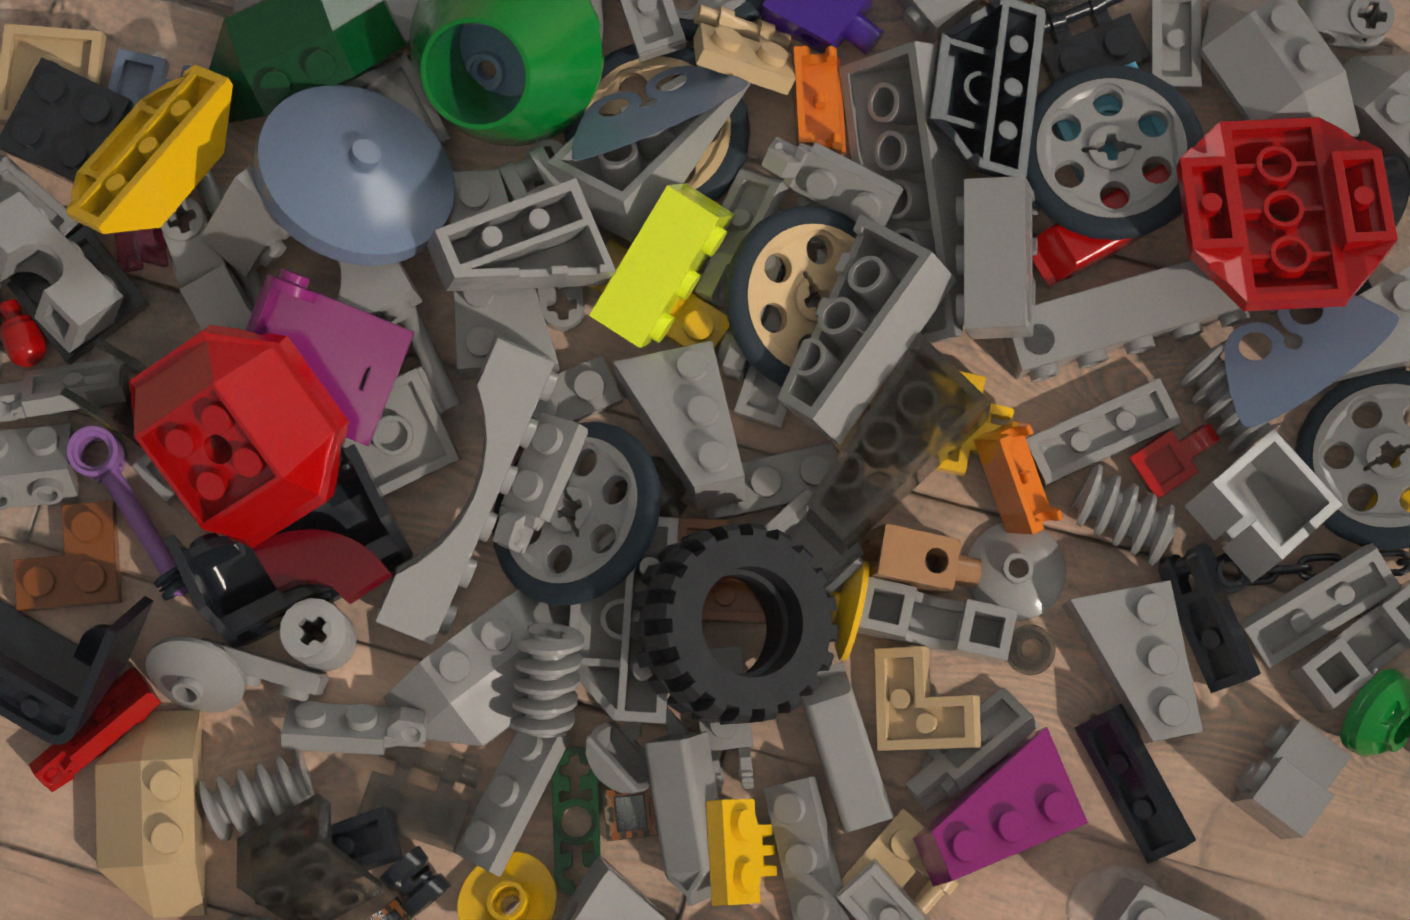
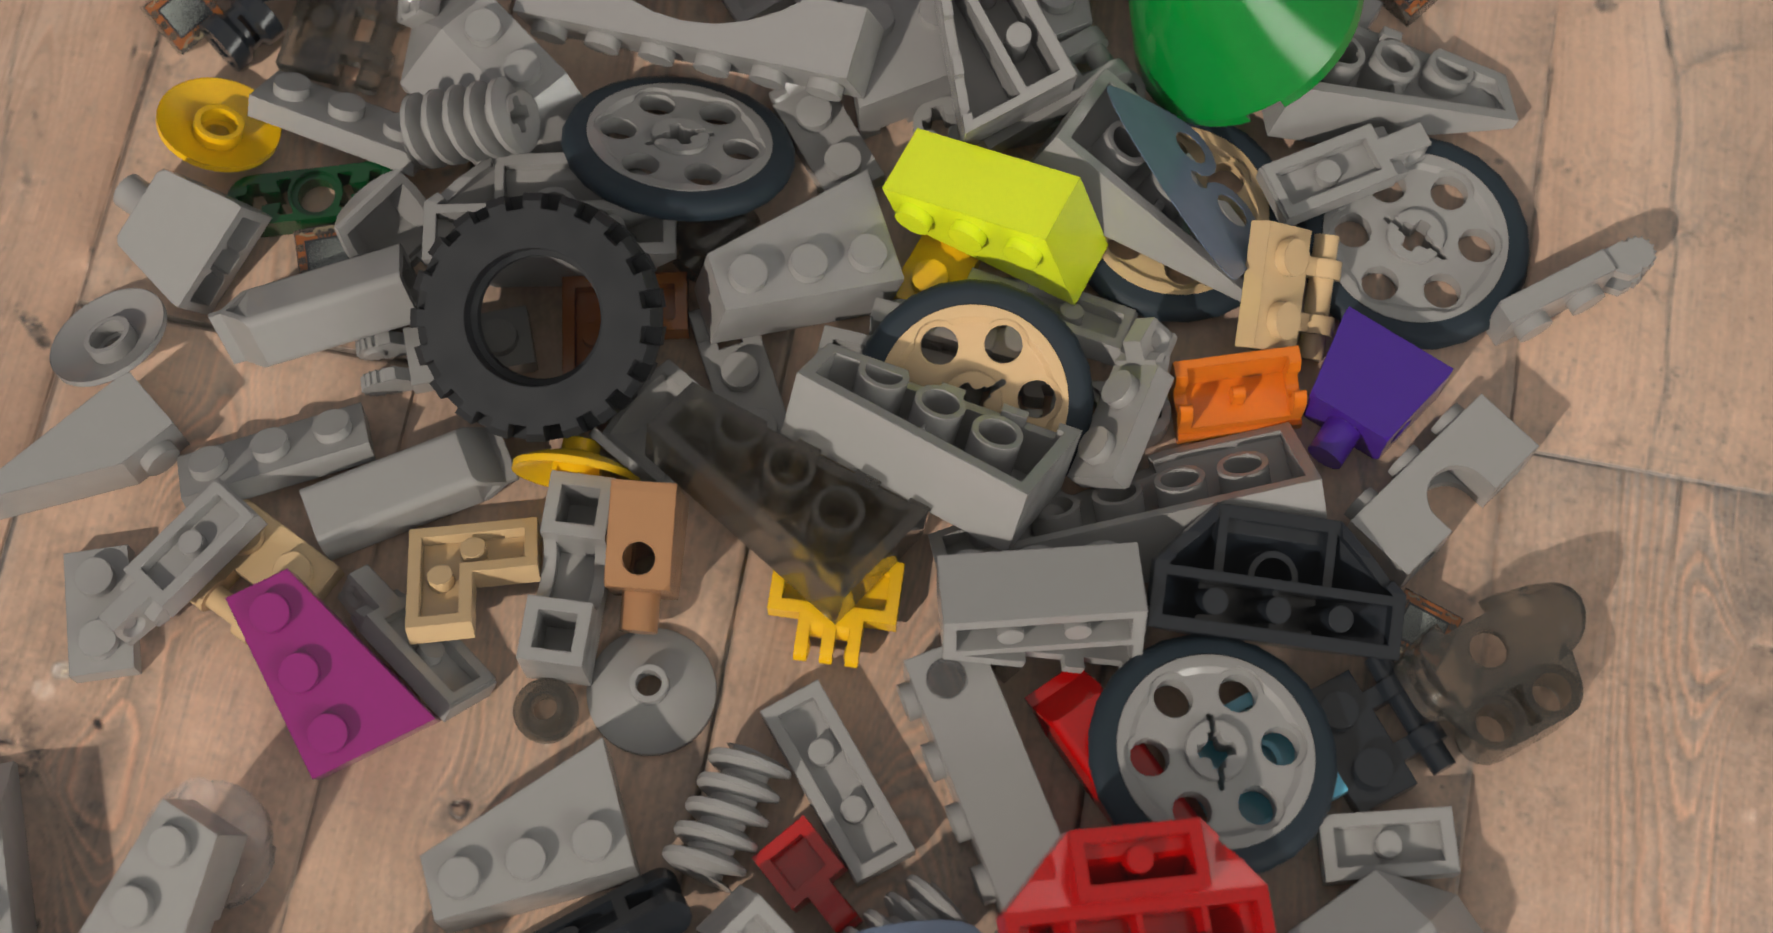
camera: 90 degrees right, 10 degrees down
(539, 480) = (715, 104): light grey hinge -> none
(737, 851) = (275, 367): yellow hinge -> none
(1015, 479) = (764, 671): orange hinge -> none
(1135, 784) = (372, 854): black plate -> none

